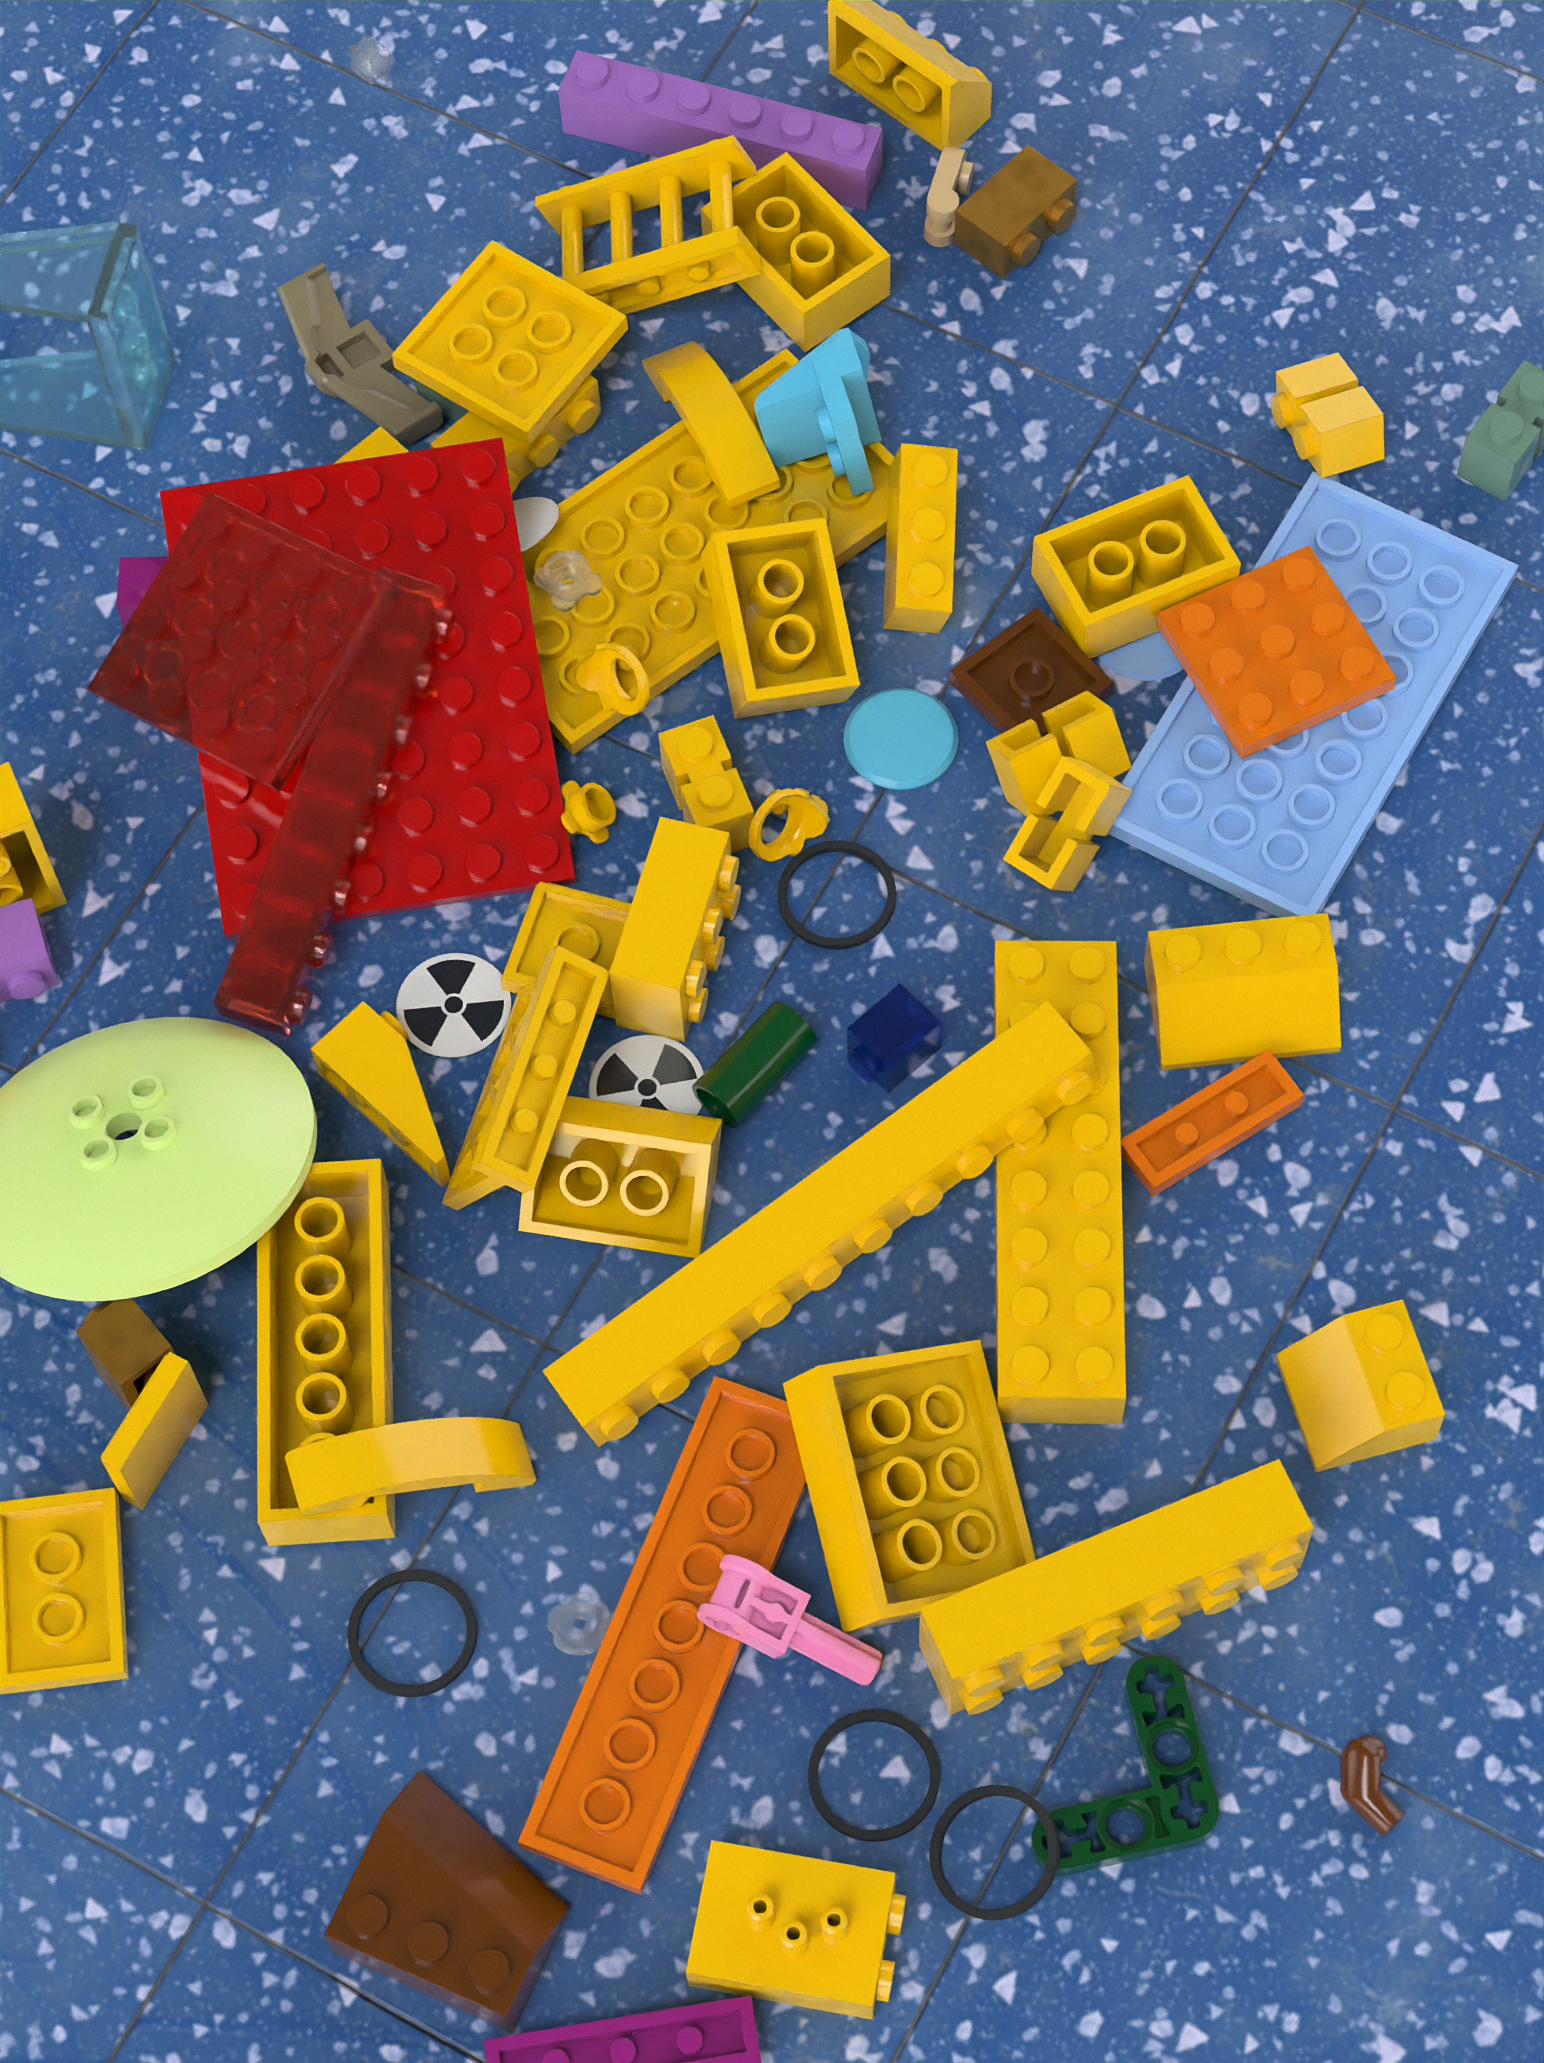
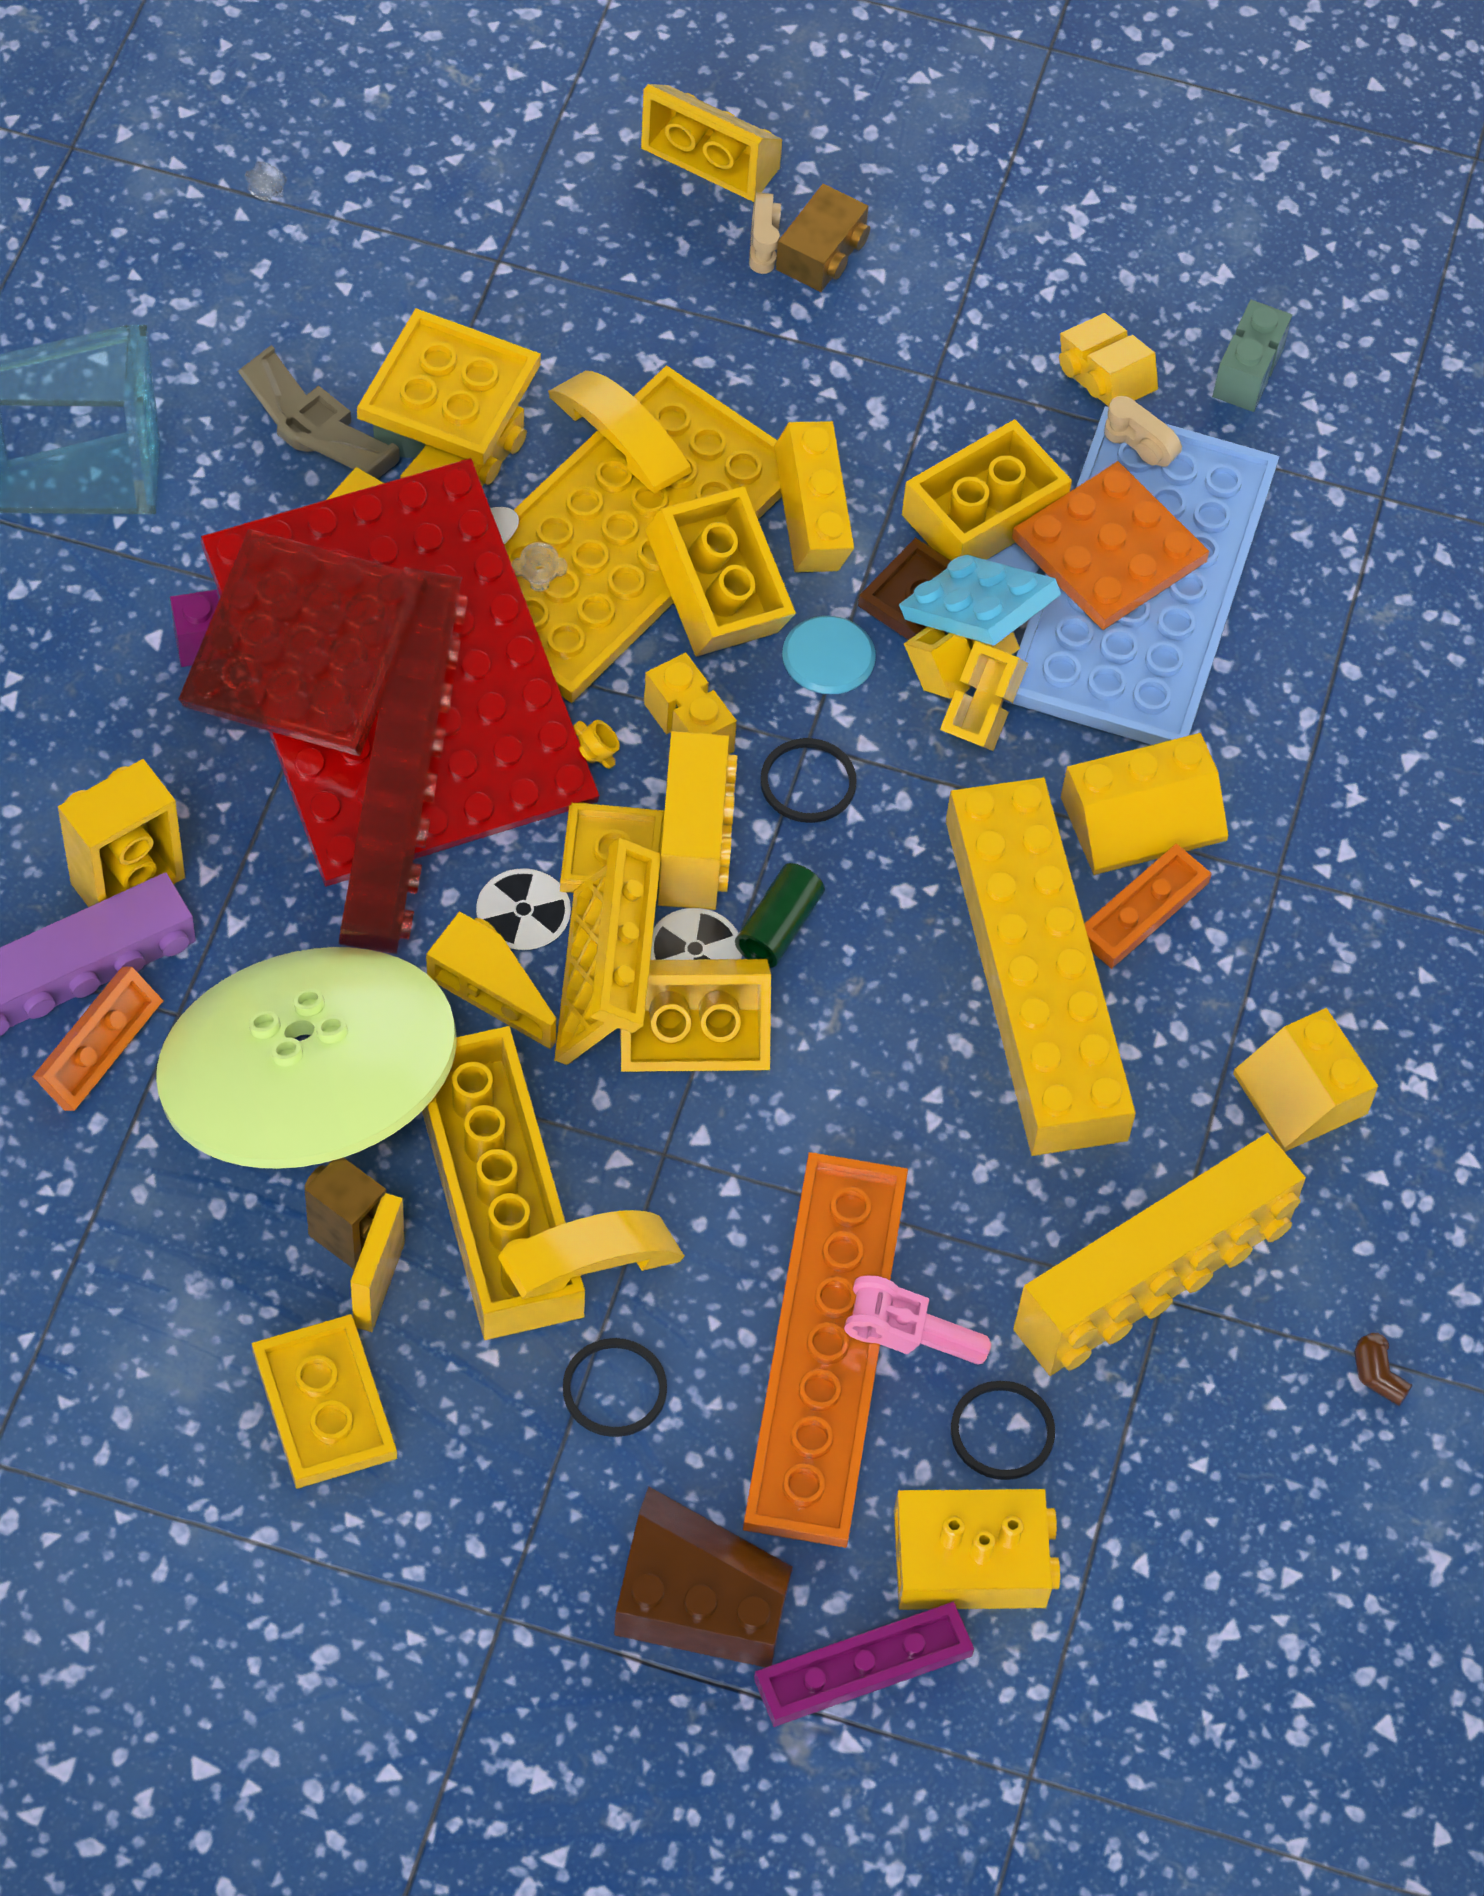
camera: 20 degrees left, 5 degrees down
(584, 1640) = (747, 1369): clear plate -> none
(597, 674) = (583, 634): yellow piece -> none
(672, 113) = (569, 202): medium lavender brick -> none
(677, 266) = (568, 311): yellow fence -> none
(805, 820) = (772, 725): yellow piece -> none
(813, 254) = (656, 289): yellow brick -> none
(823, 409) = (718, 405): medium azure piece -> none
(823, 1224) = (870, 1023): yellow brick -> none
(893, 1039) = (884, 879): clear blue brick -> none
(907, 1479) = (978, 1202): yellow slope -> none
(938, 1838) = (1081, 1432): black piece -> none
(1086, 701) = (979, 599): none -> medium azure plate
(1150, 1805) = (1221, 1412): dark green beam -> none
(1352, 516) = (1141, 431): none -> tan plate

